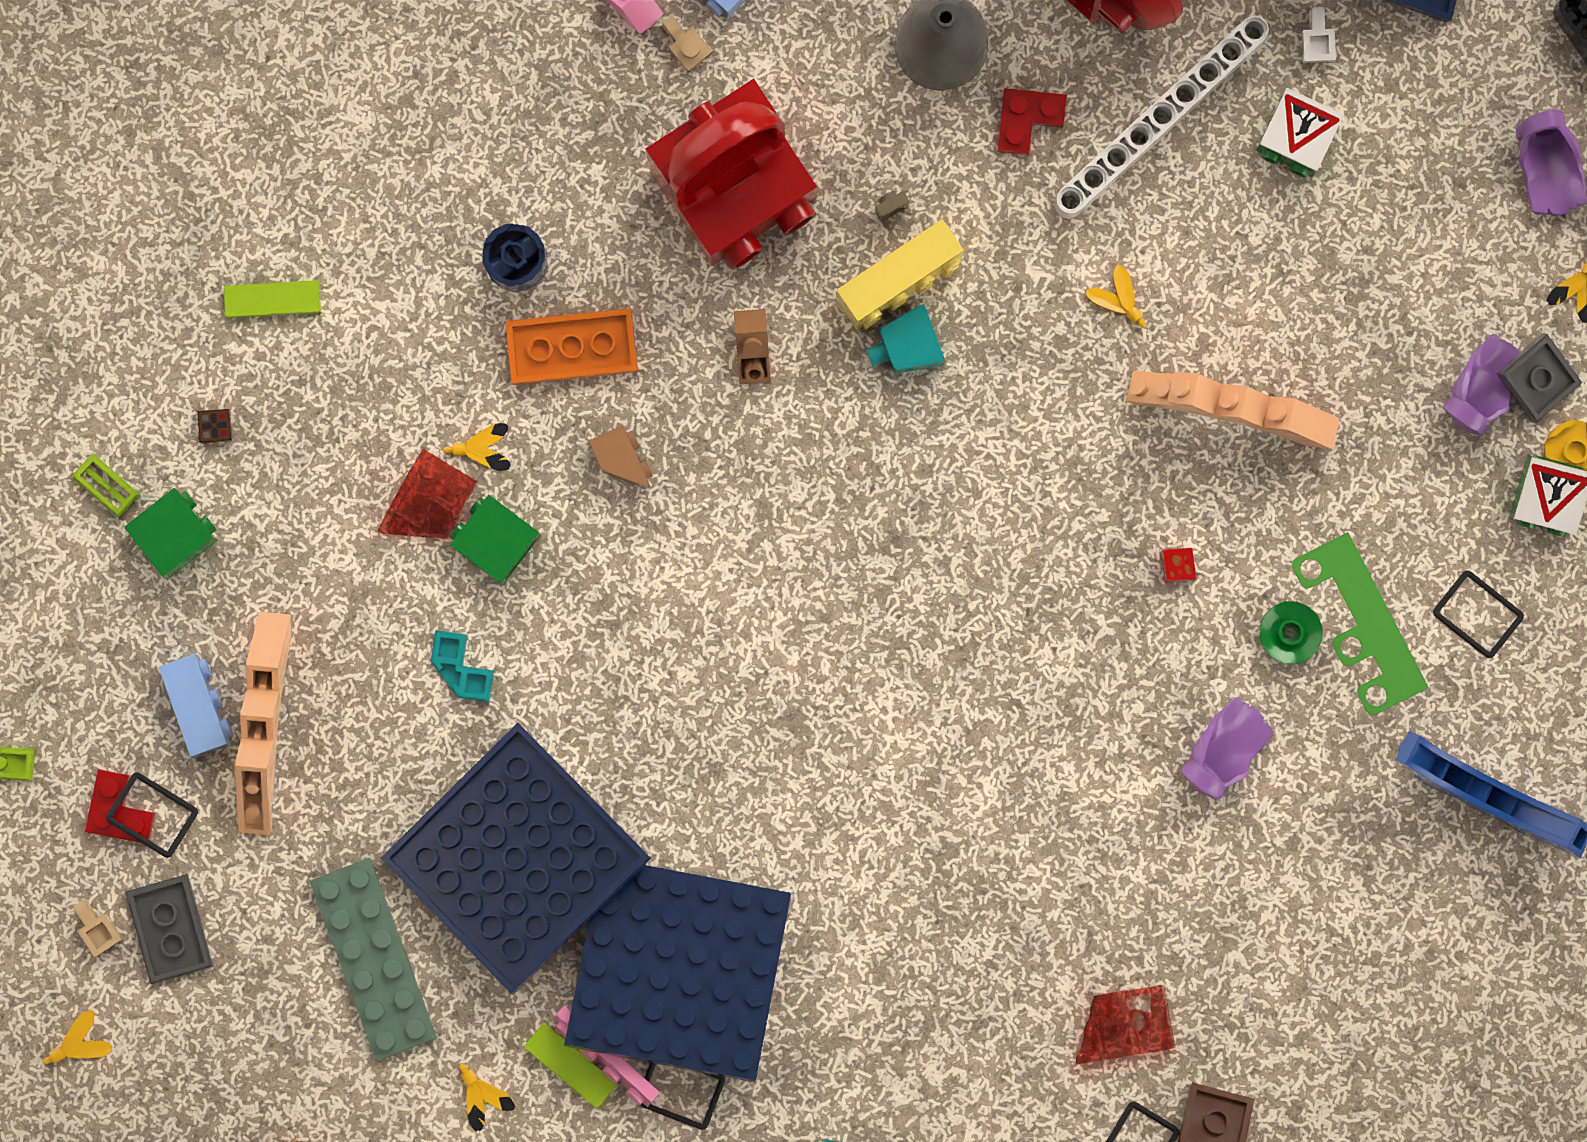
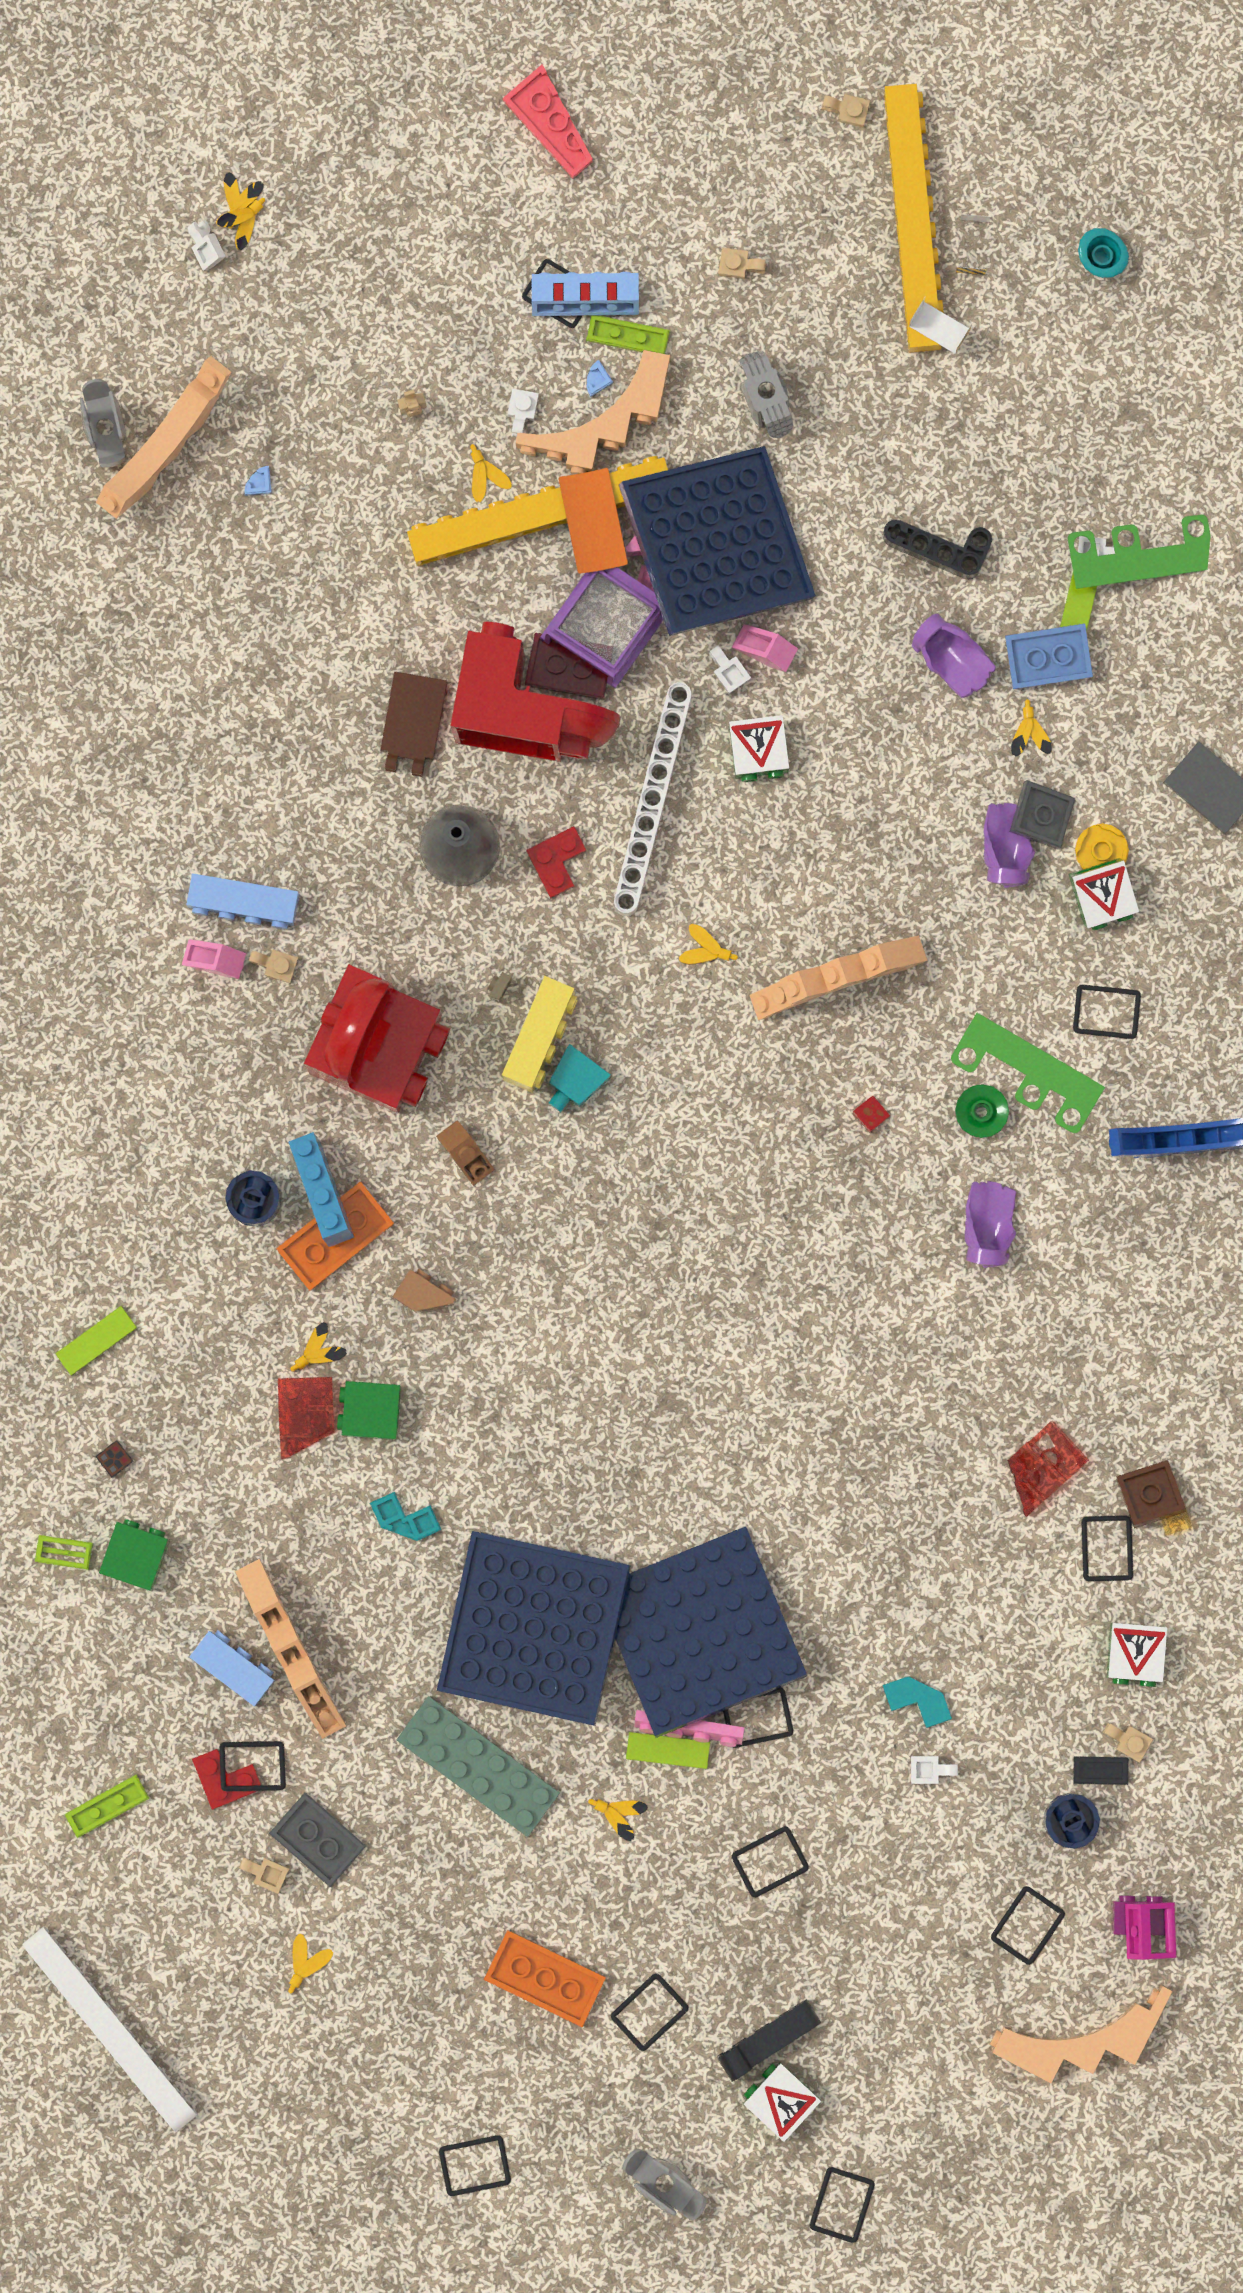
camera: 30 degrees left, 0 degrees up
(586, 290) = (321, 1189): none -> dark azure brick
(1369, 39) = (765, 647): none -> bright pink slope

